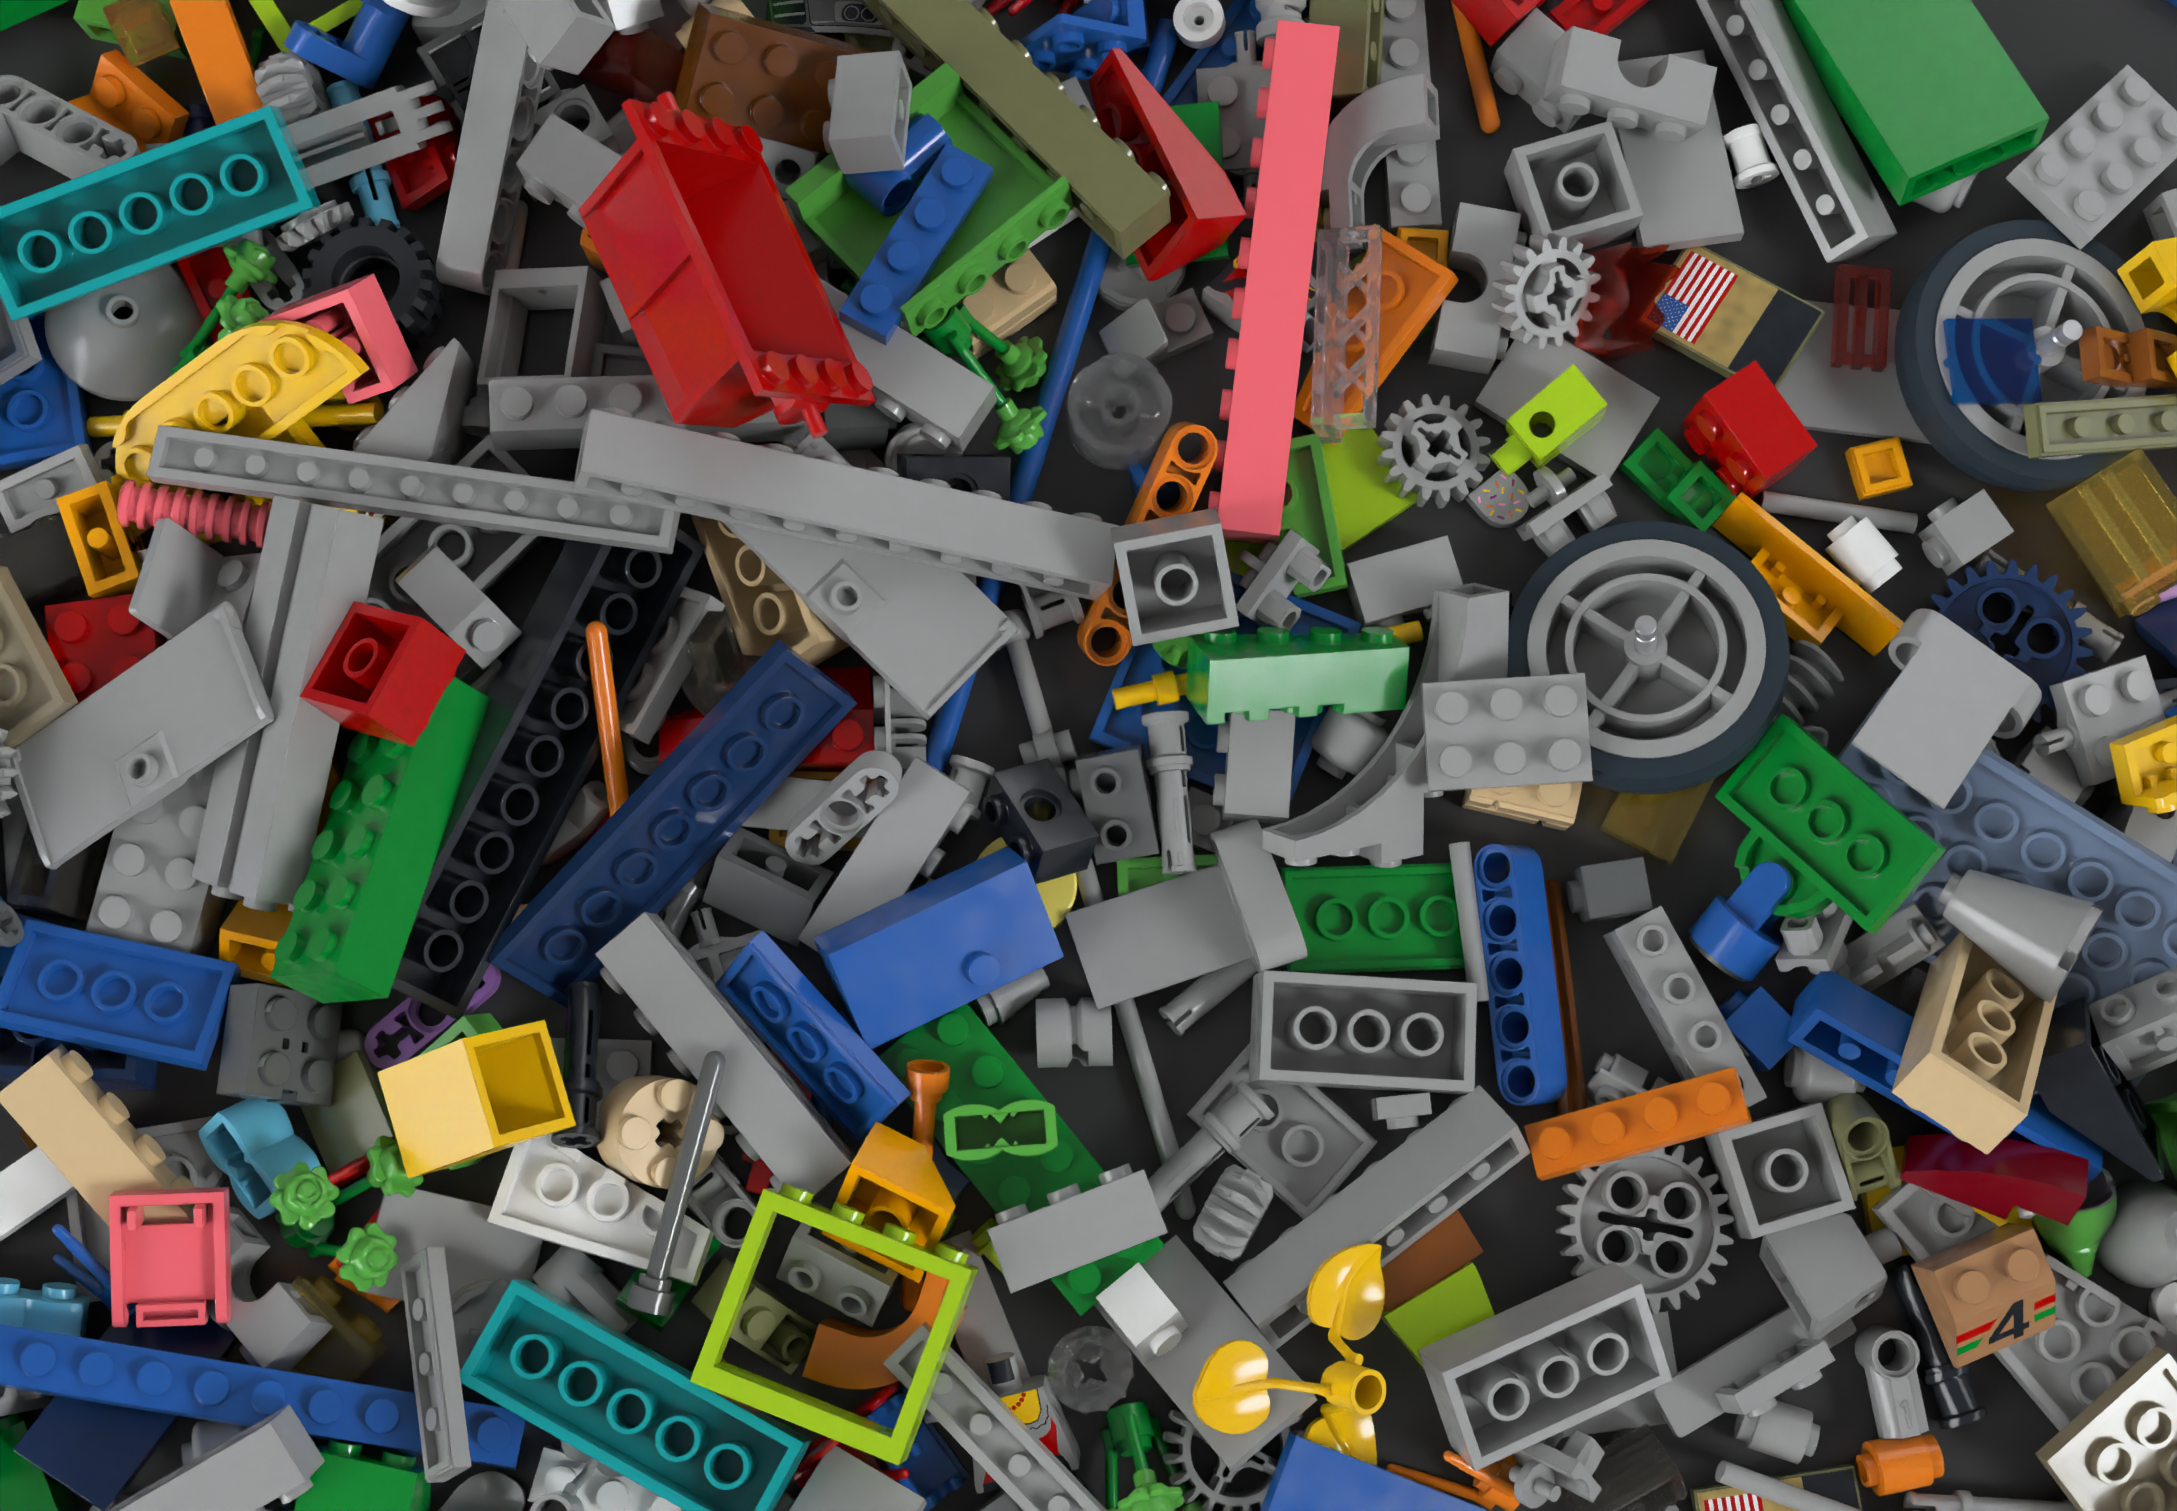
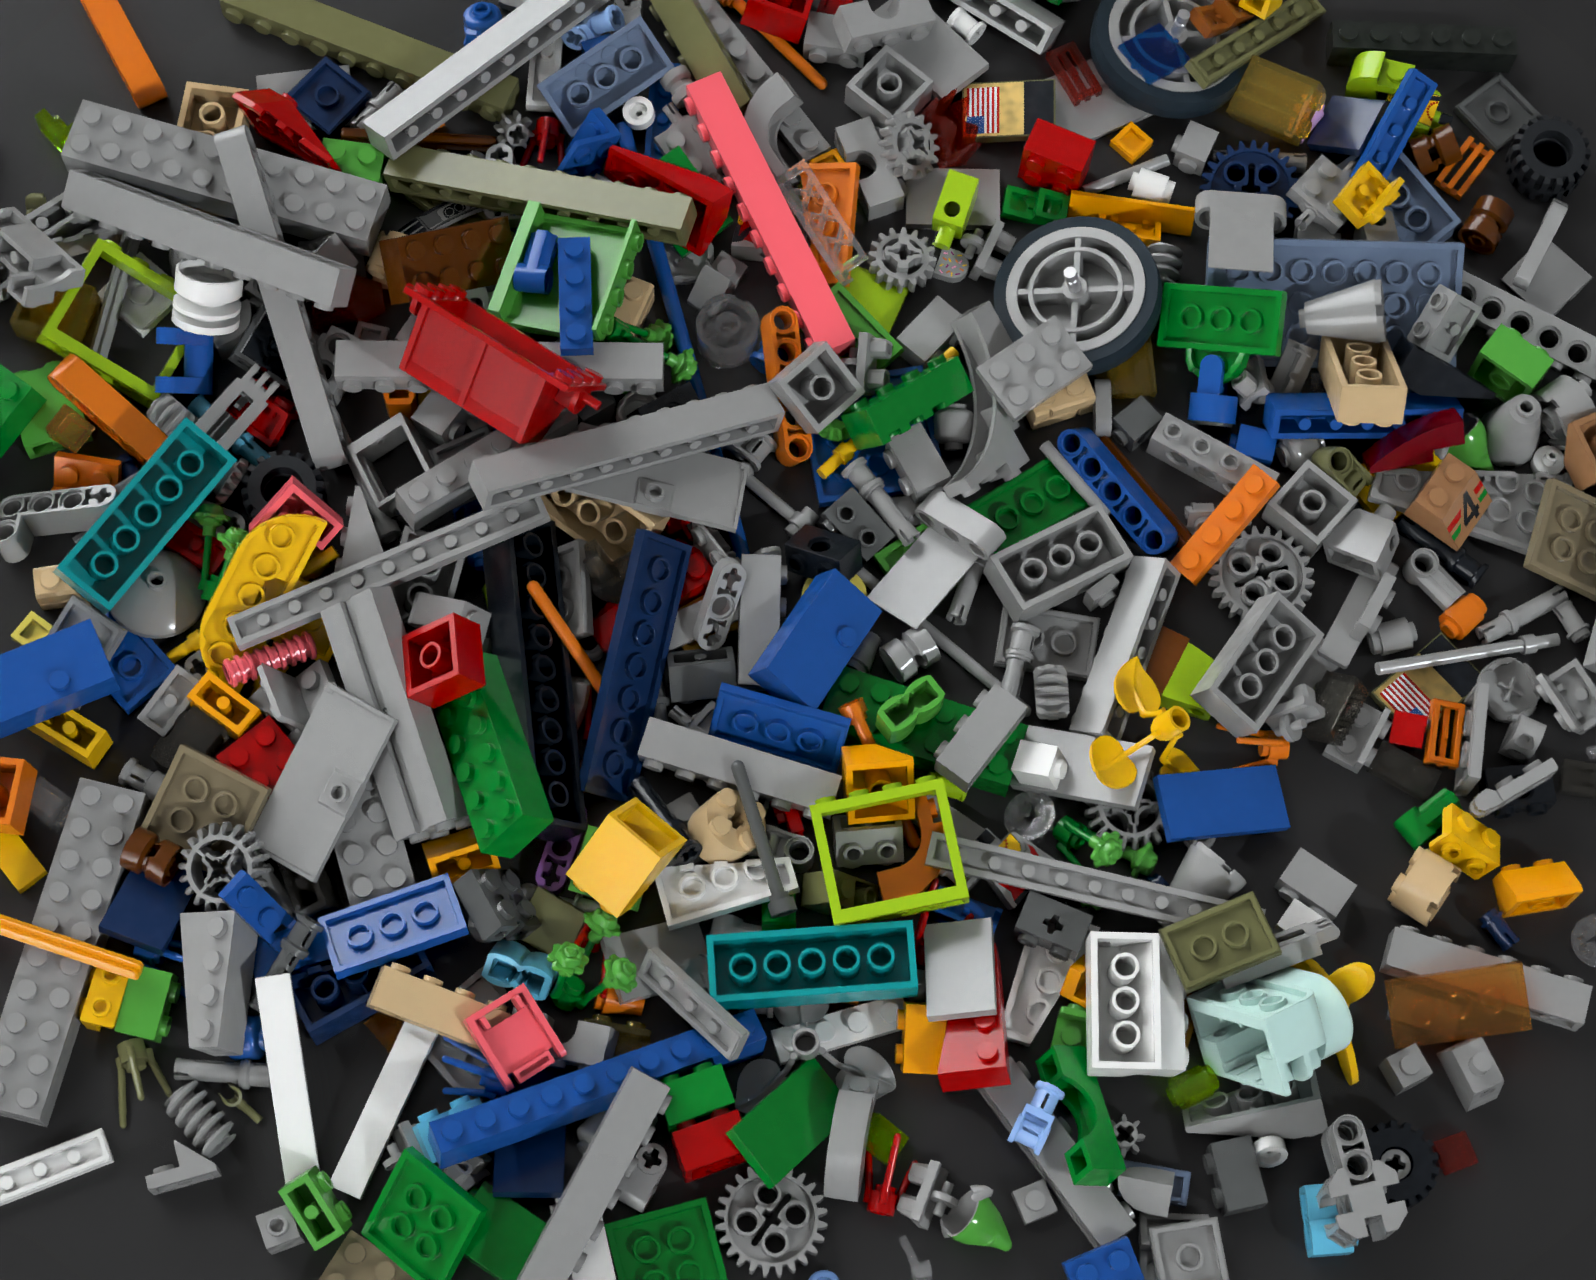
camera: 35 degrees left, 10 degrees down
(869, 112) = (509, 243): light grey brick -> none
(1578, 837) = (1102, 408): none -> light grey beam

